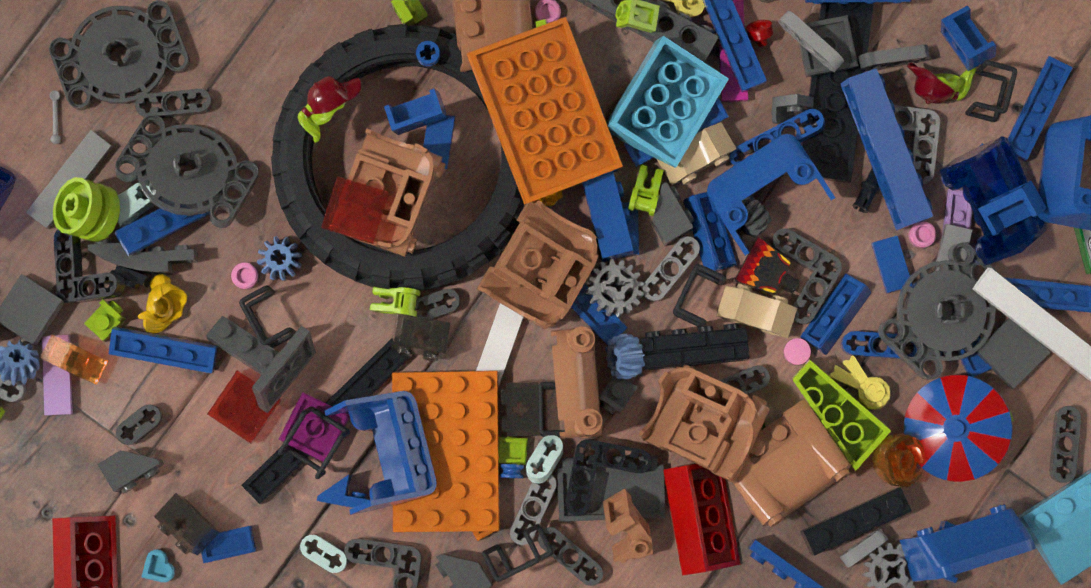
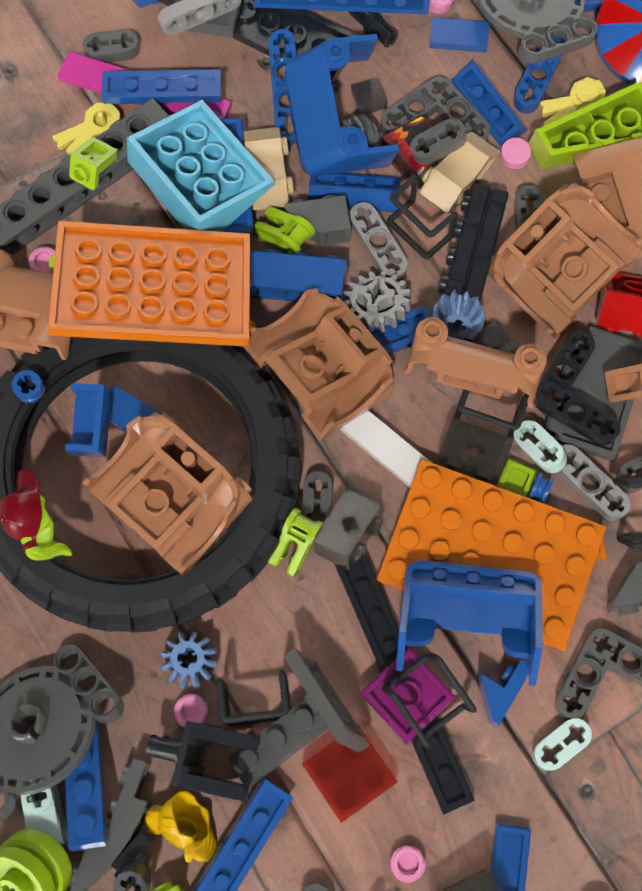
camera: 70 degrees left, 10 degrees down
(198, 472) = (407, 864): none -> bright pink tile
(209, 287) = (189, 754): none -> black piece
(355, 210) = (173, 531): clear red plate -> none
(760, 31) = (165, 61): red tile -> none
(762, 288) = (438, 141): none -> dark grey beam
(785, 106) = (255, 58): dark grey bracket -> none
(801, 211) = (369, 96): none -> clear smoke tile

